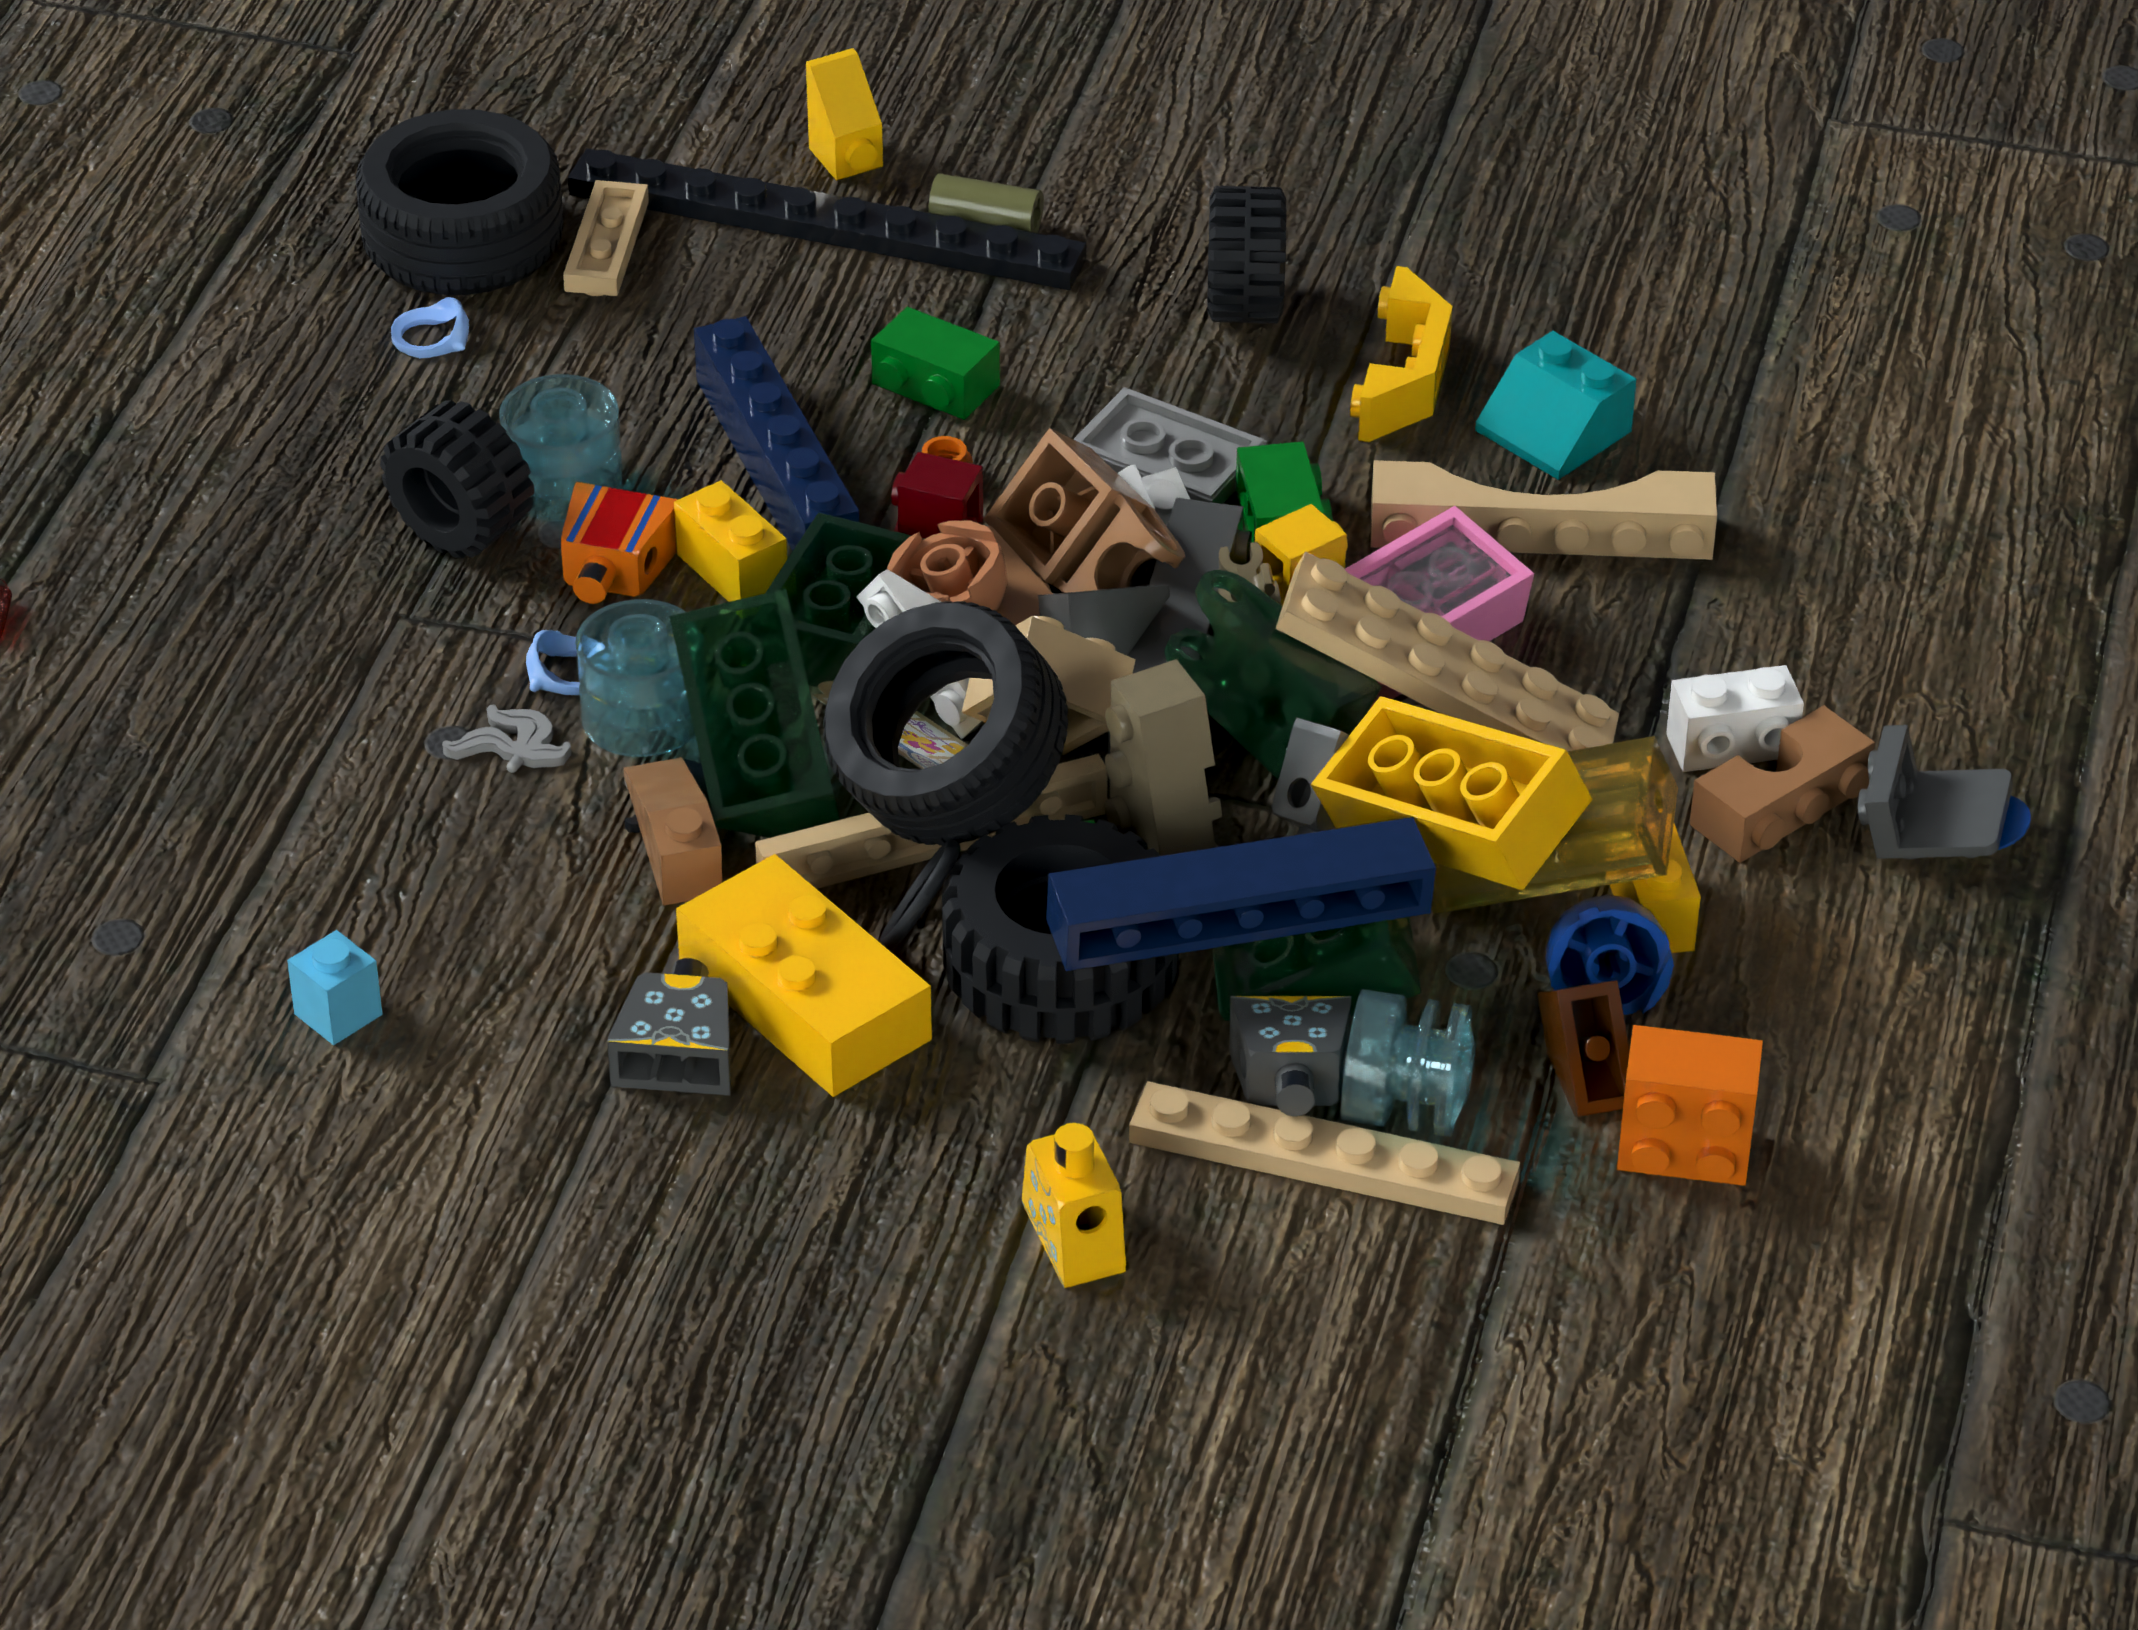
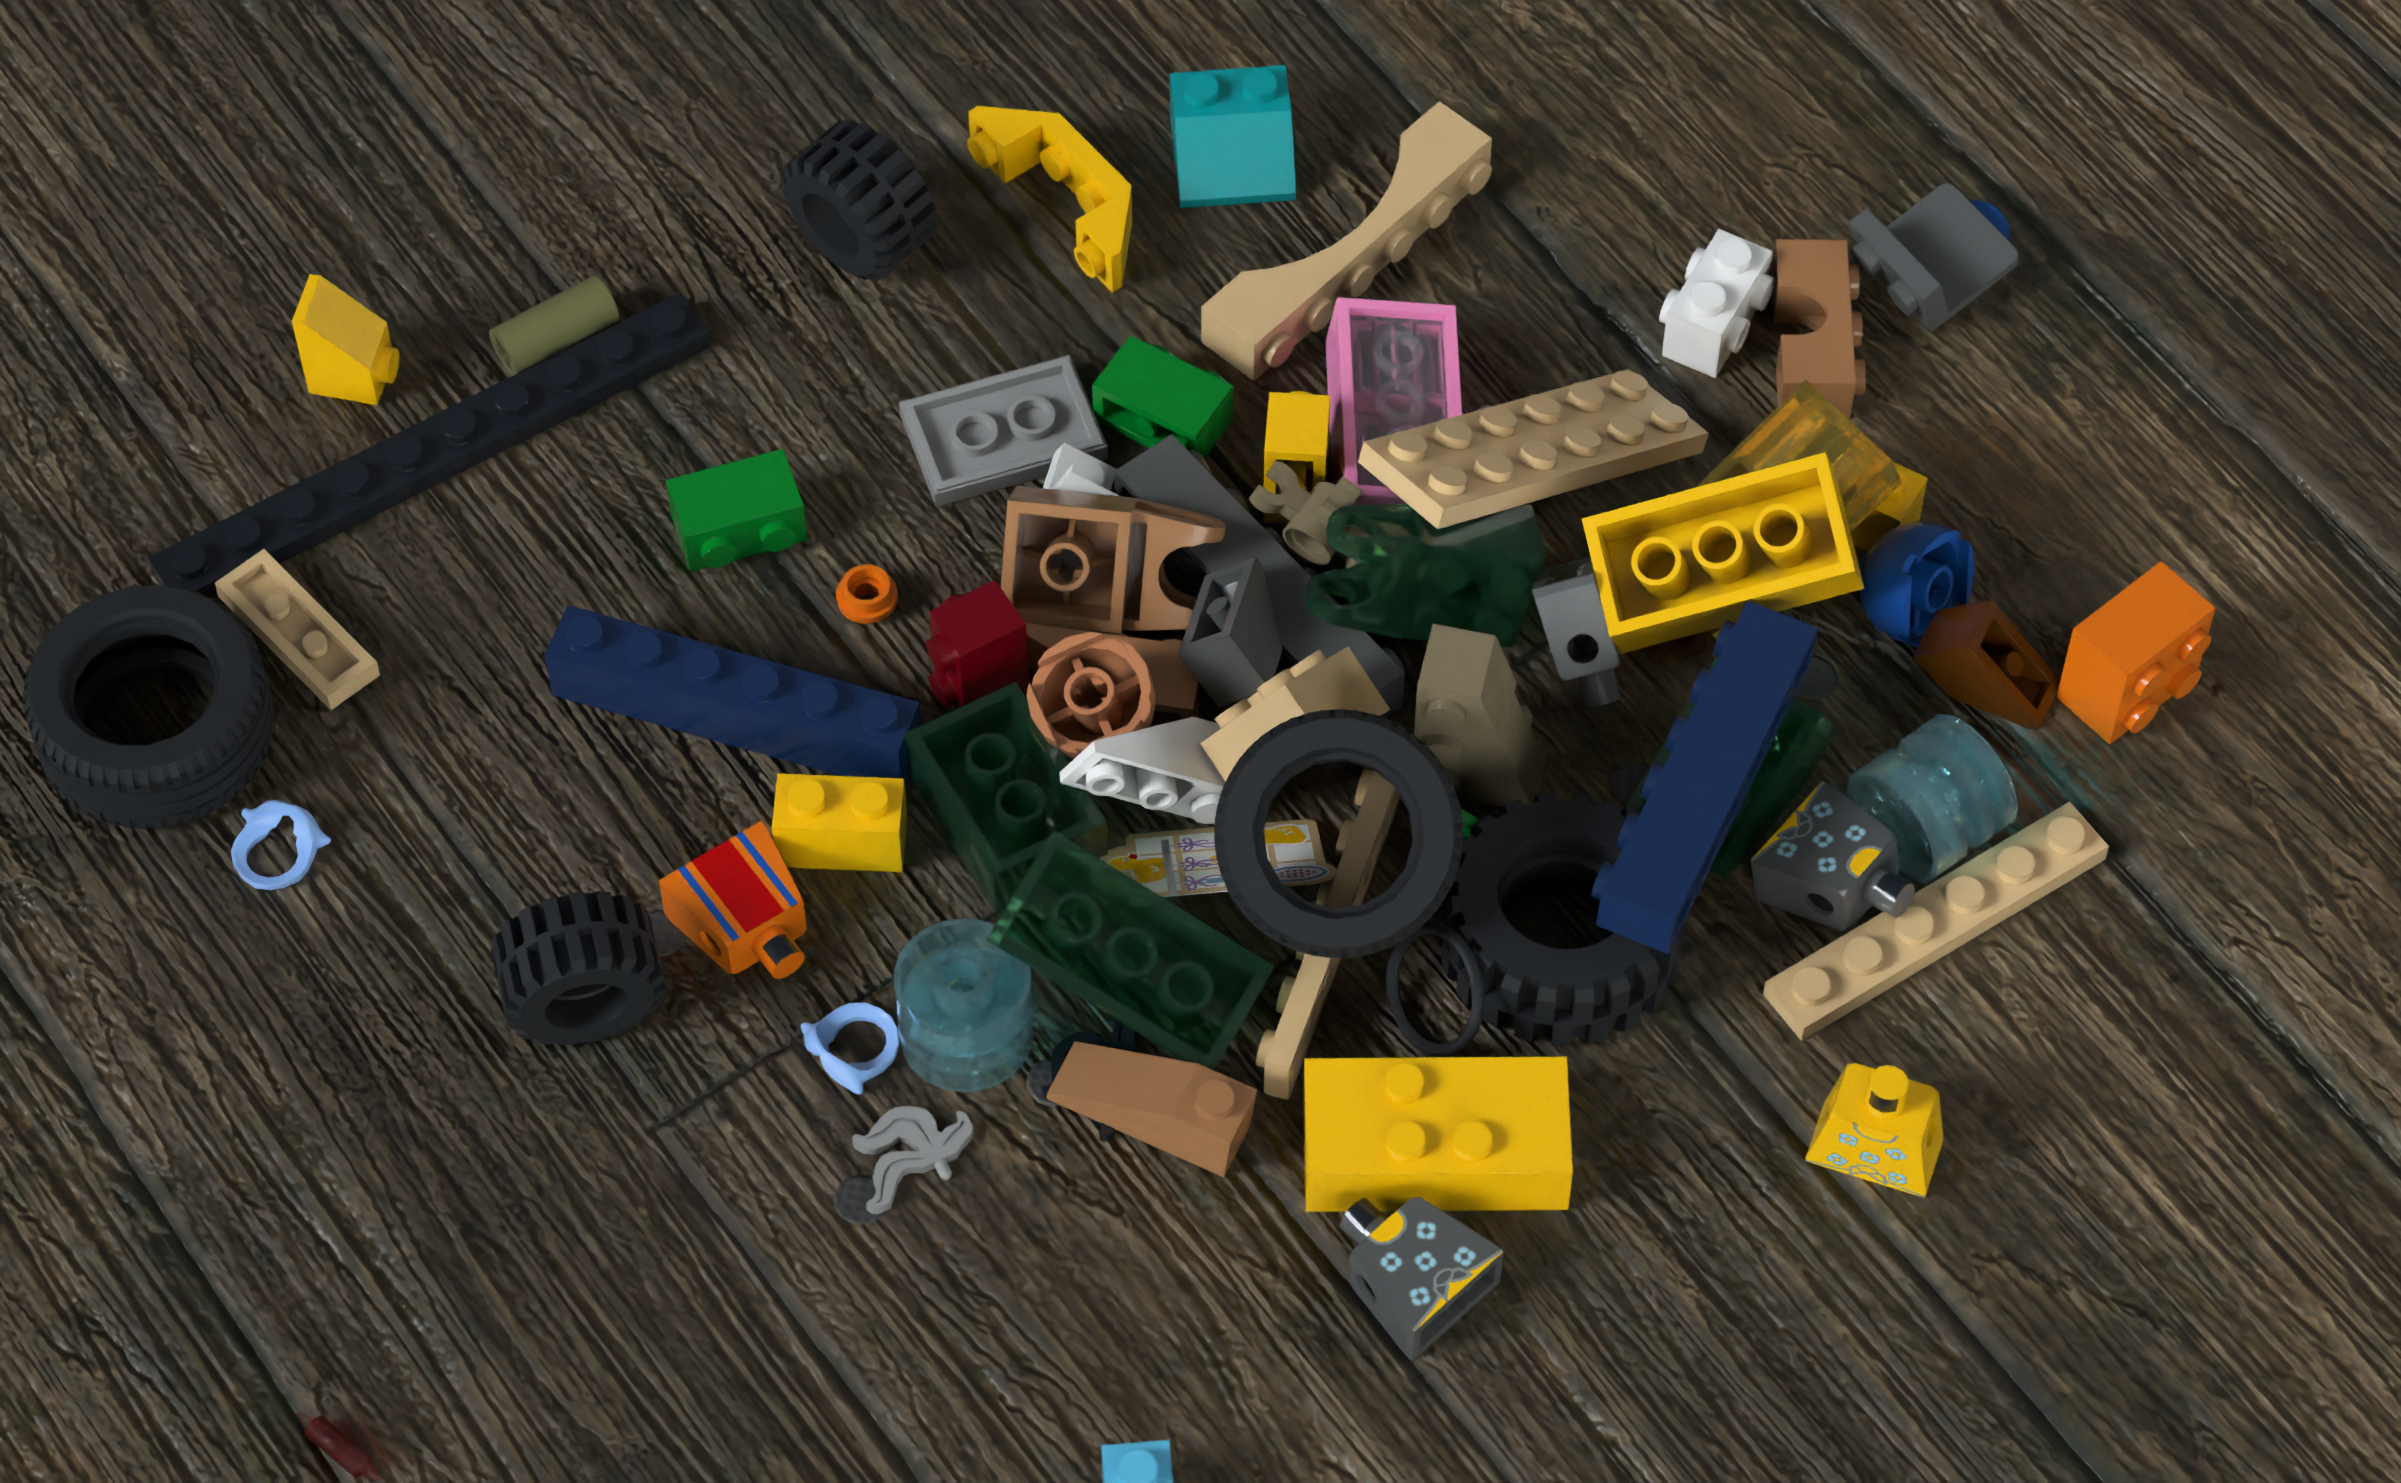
camera: 50 degrees left, 15 degrees up
(566, 437) = (590, 839): clear light blue wheel -> none

